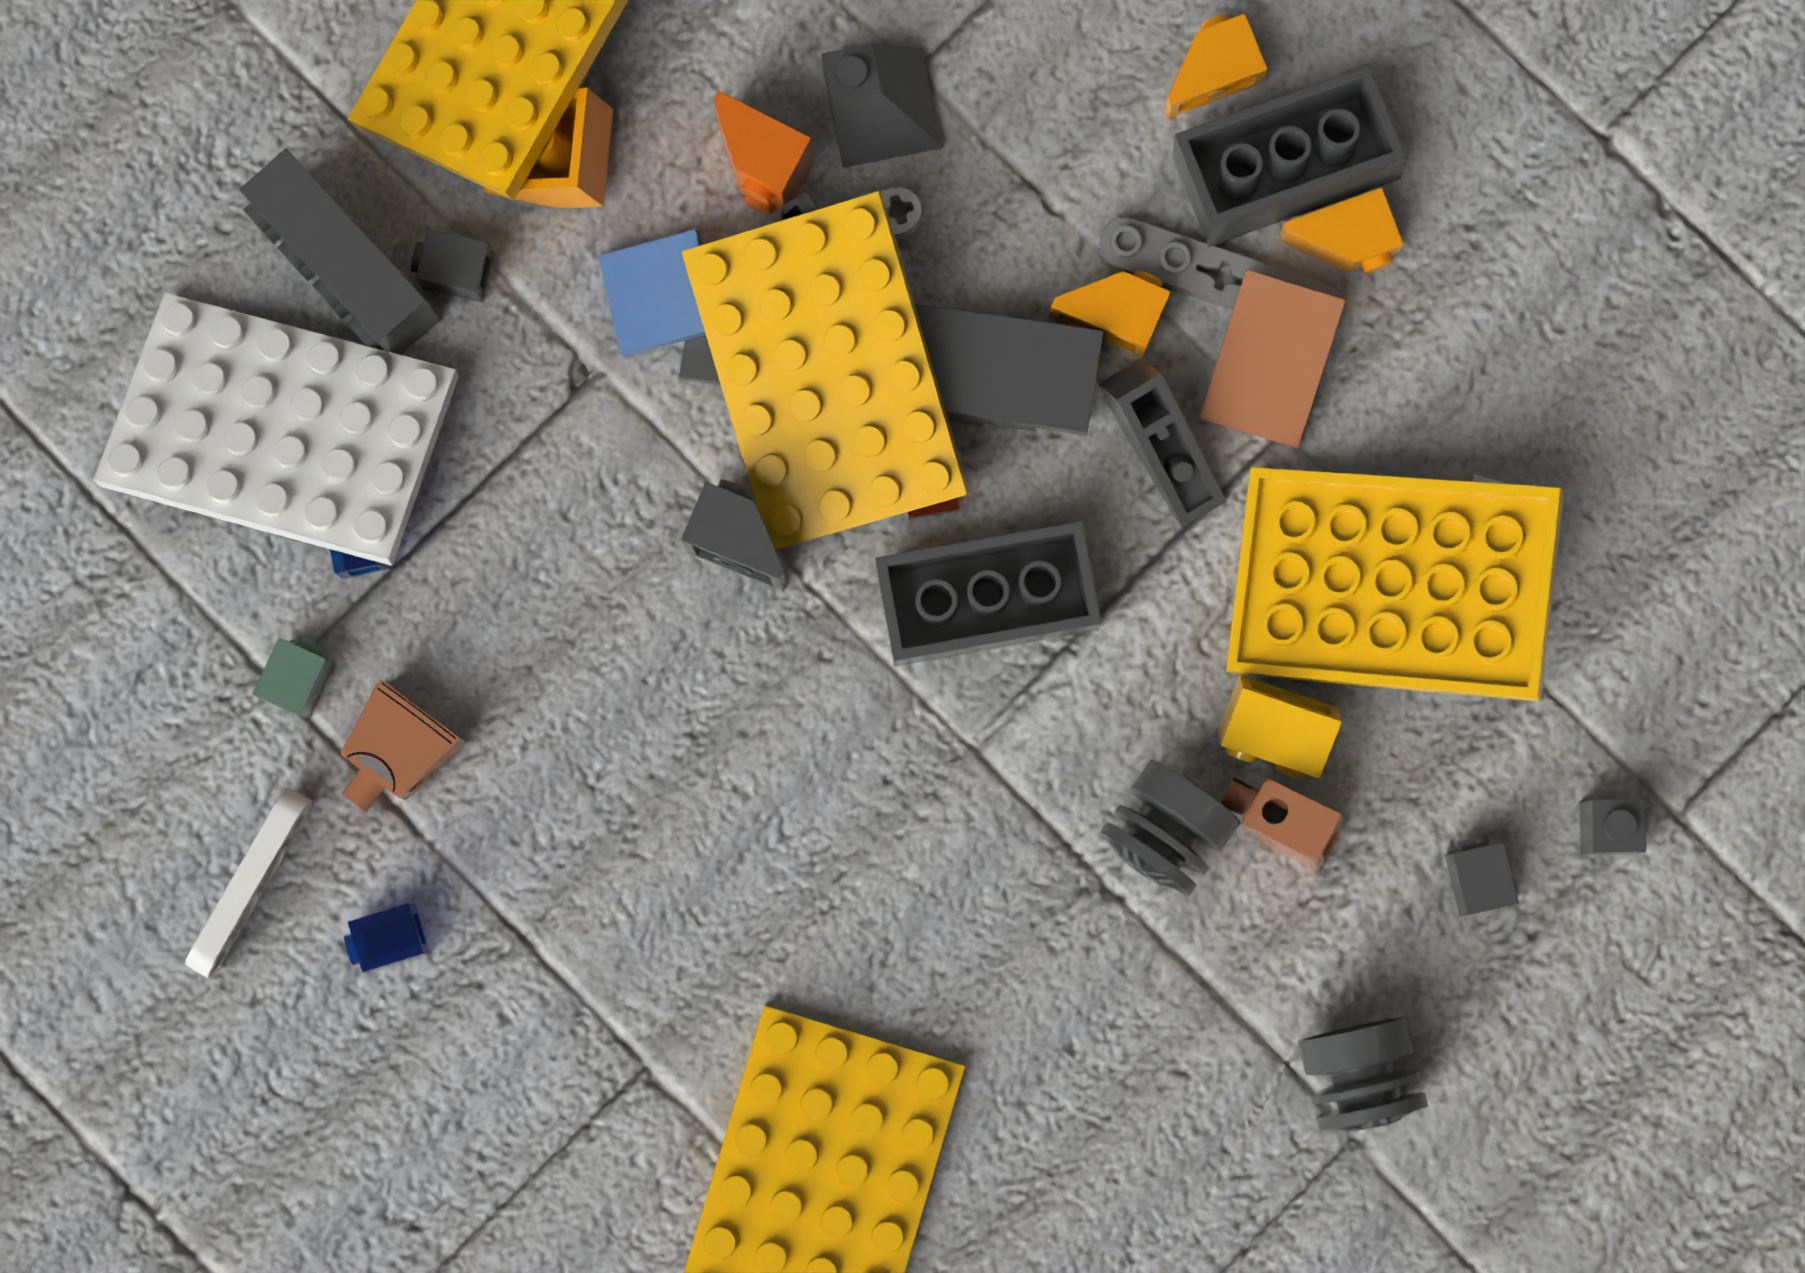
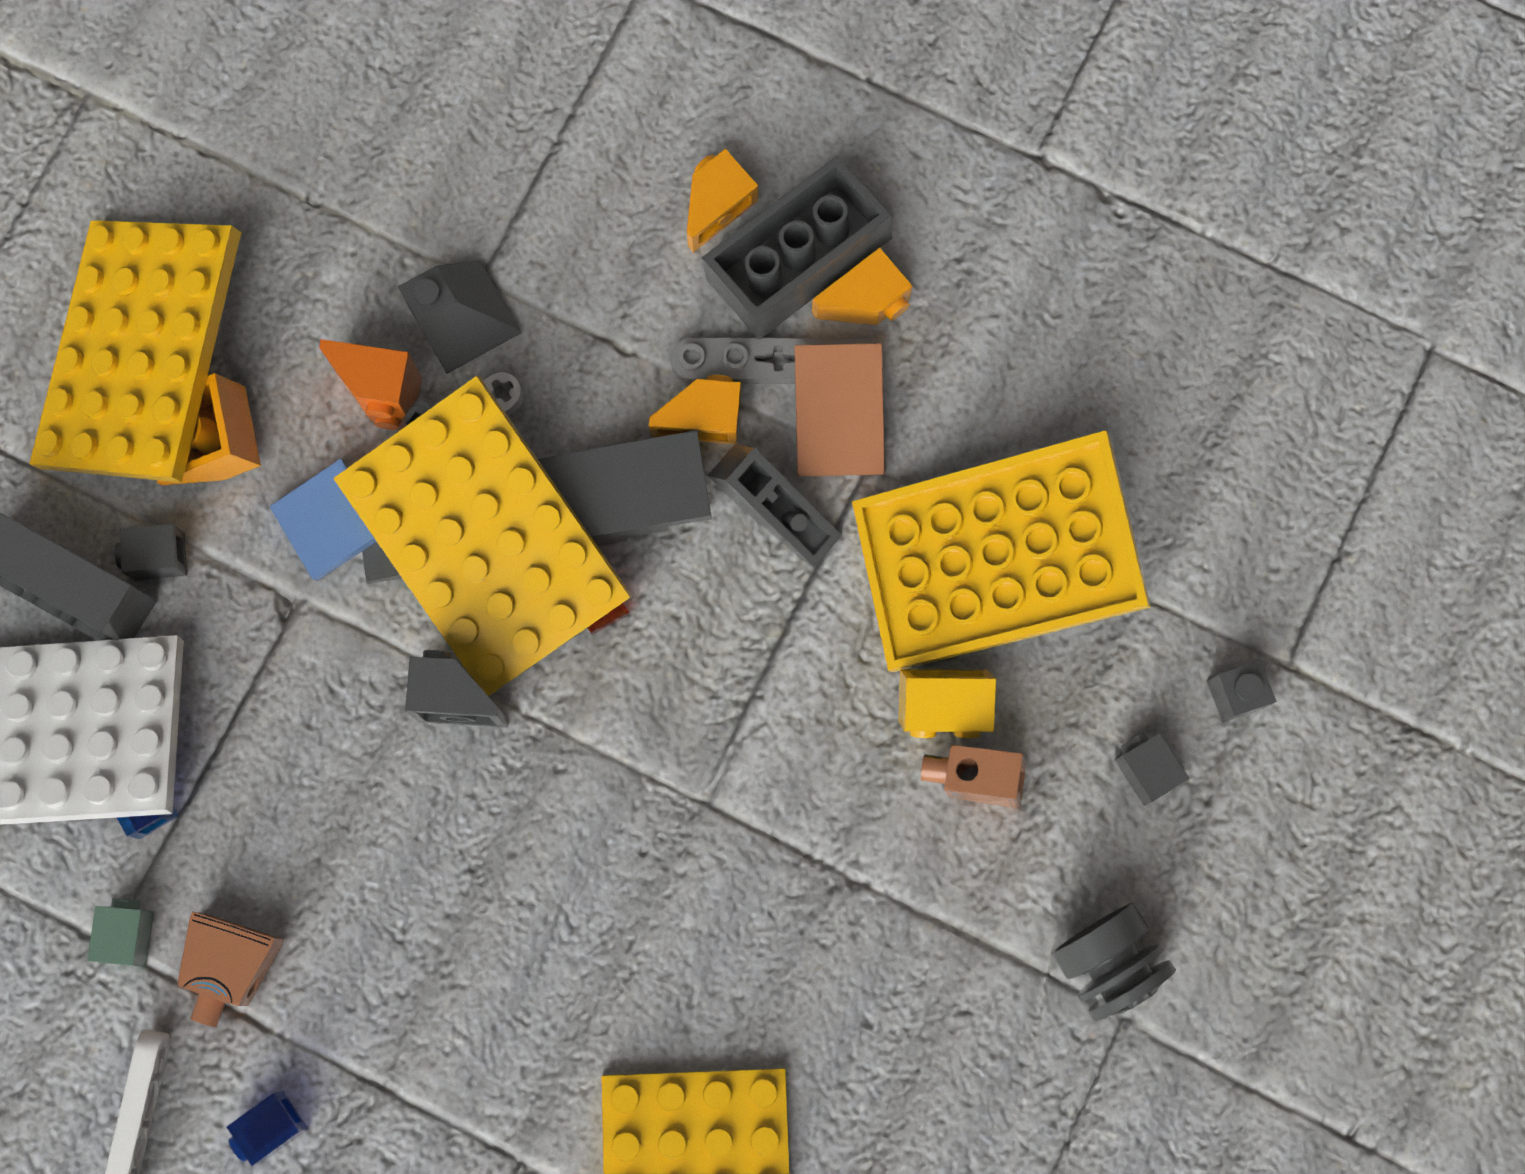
camera: 20 degrees left, 5 degrees down
(988, 593) = (674, 672): dark grey brick -> none
(1169, 828) = (886, 813): dark grey wheel -> none

